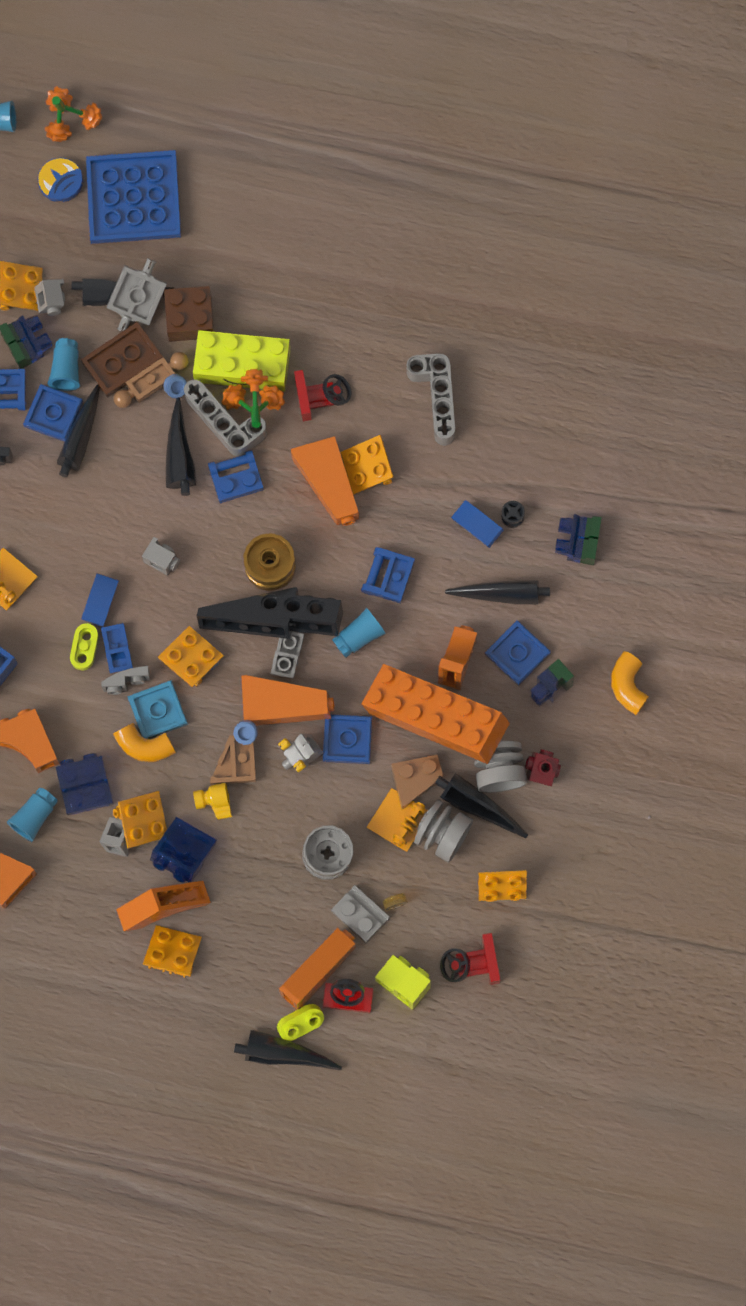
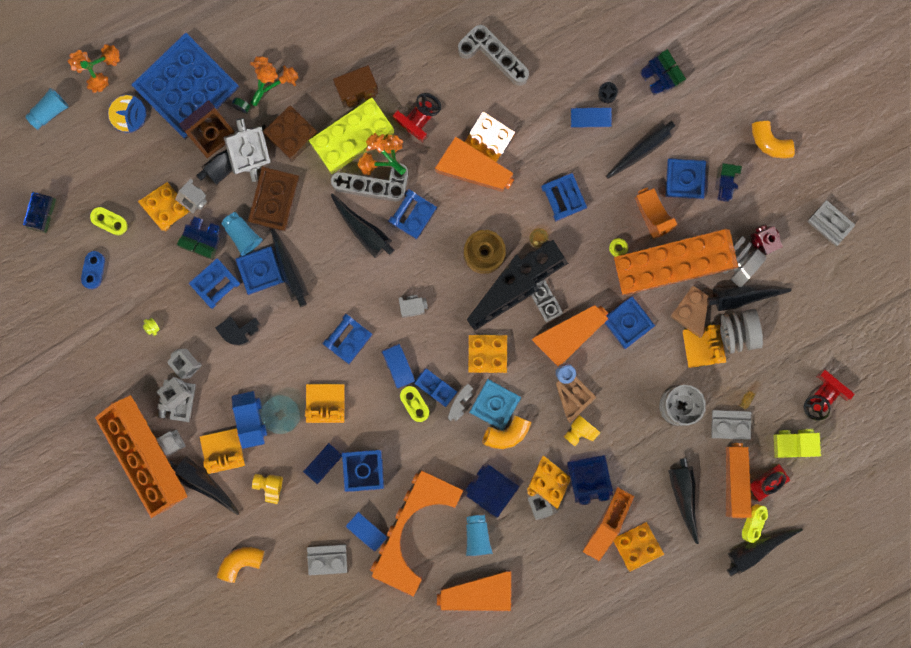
camera: 45 degrees left, 10 degrees up
(76, 546) = (352, 343): none -> blue plate
(116, 246) = (207, 129): none -> reddish brown brick
(150, 379) = (304, 197): medium nougat plate -> none
(167, 253) = (241, 105): none -> dark green tile
(174, 385) = (323, 188): medium blue tile -> none
(213, 239) = (267, 73): none -> orange plant
(262, 937) = (684, 487): none -> black piece
(283, 318) = (356, 86): none -> reddish brown brick
(300, 752) = (609, 356): light grey piece -> none
(332, 590) = (538, 237): none -> clear yellow tile
(358, 633) = (579, 250): dark azure plant -> none
(399, 656) = (622, 243): none -> neon yellow plate
(502, 885) = (809, 329): light orange hinge -> none
(619, 806) = (831, 223): none -> light grey plate

